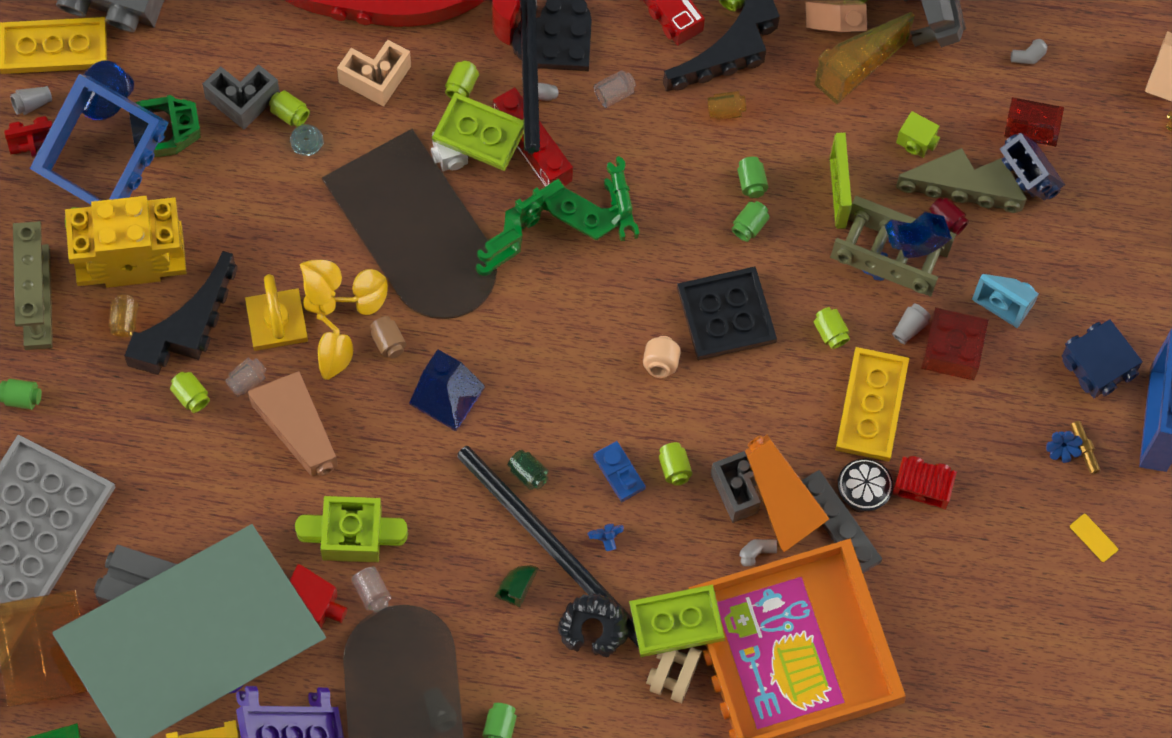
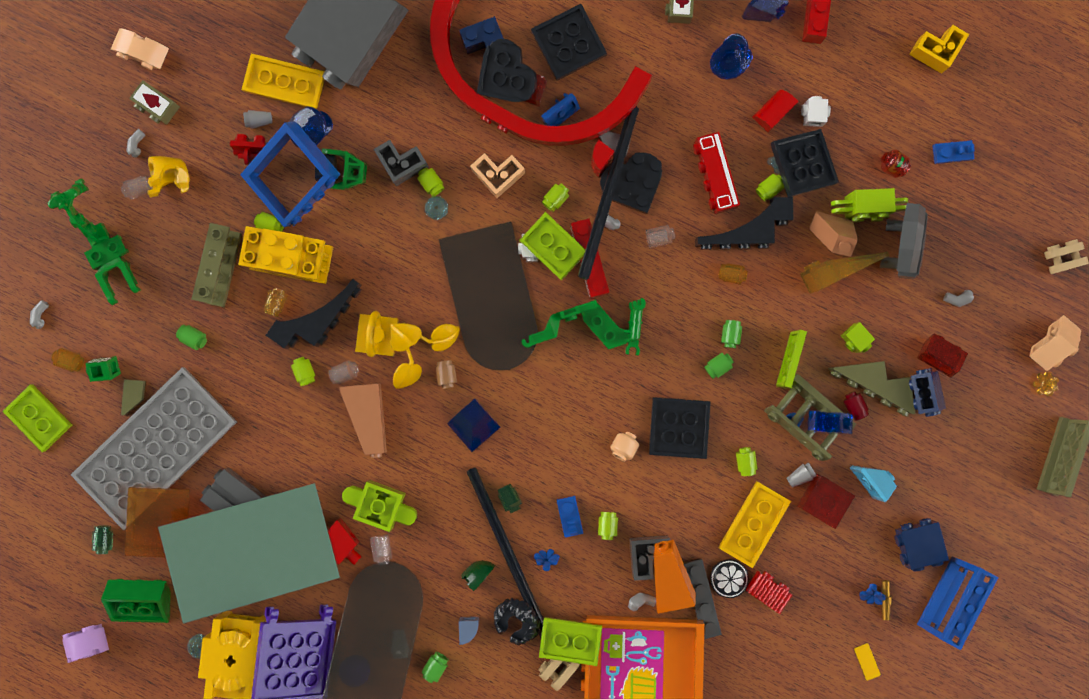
camera: 20 degrees right, 20 degrees up
(528, 658) = (467, 629): none -> sand blue brick

